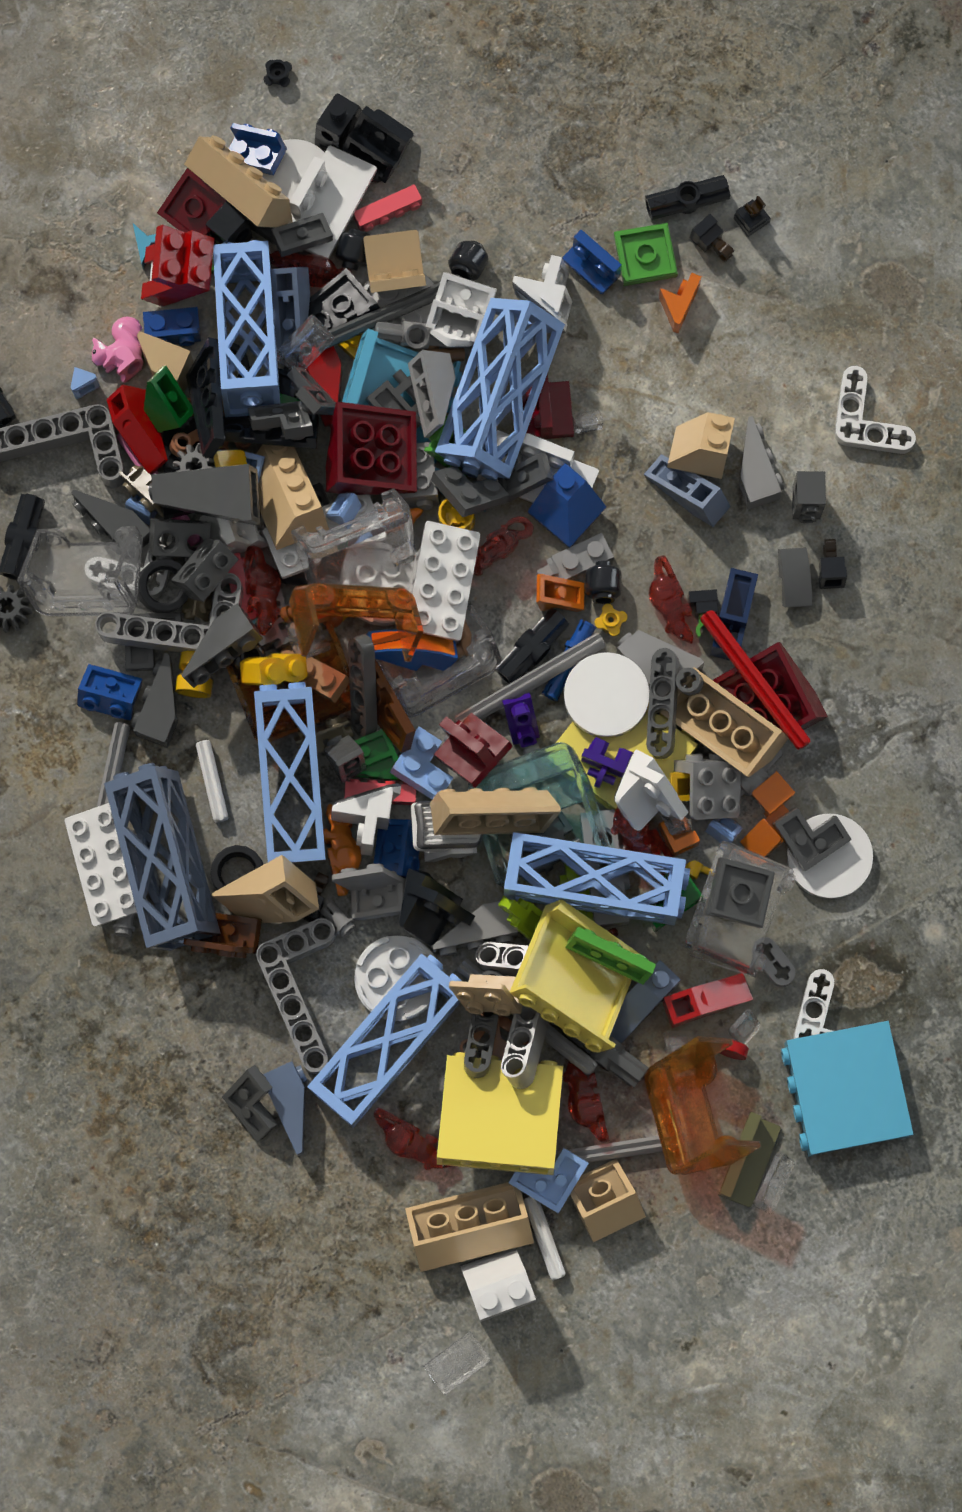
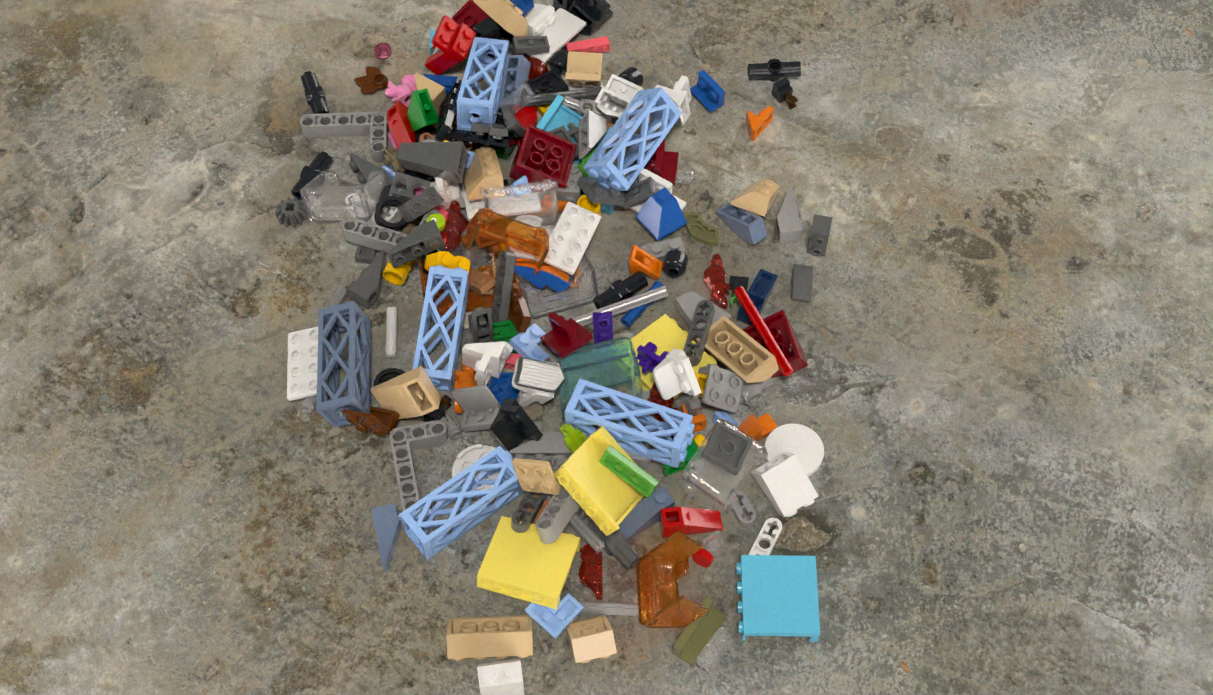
camera: 10 degrees right, 20 degrees down
(61, 339) = (372, 81): none -> reddish brown plate
(66, 278) = (382, 51): none -> clear pink tile
(83, 382) = (376, 102): light blue slope -> none
(108, 692) = (339, 269): blue bracket -> none
(237, 594) = (439, 219): none -> lime tile
(245, 1102) = (356, 525): dark grey plate -> none
(405, 1141) = (460, 573): clear red animal -> none
(493, 811) = (566, 369): tan slope -> none
(501, 544) = (612, 230): clear red animal -> none
(544, 1238) = (541, 656): white axle -> none
(606, 694) = (662, 322): white tile -> none
(612, 628) = (675, 291): yellow plate -> none
(627, 512) = (700, 230): none -> olive tile
(645, 254) = (741, 95): bright green plate -> none
(682, 678) = (714, 320): dark grey bush -> none
(752, 216) = (811, 85): black piece -> none
(773, 793) = (763, 403): orange panel -> none
(810, 845) = (782, 437): dark grey plate -> none
(827, 916) = (785, 484): none -> white slope
(831, 568) = (827, 282): black piece -> none
(855, 421) = (857, 205): white beam -> none

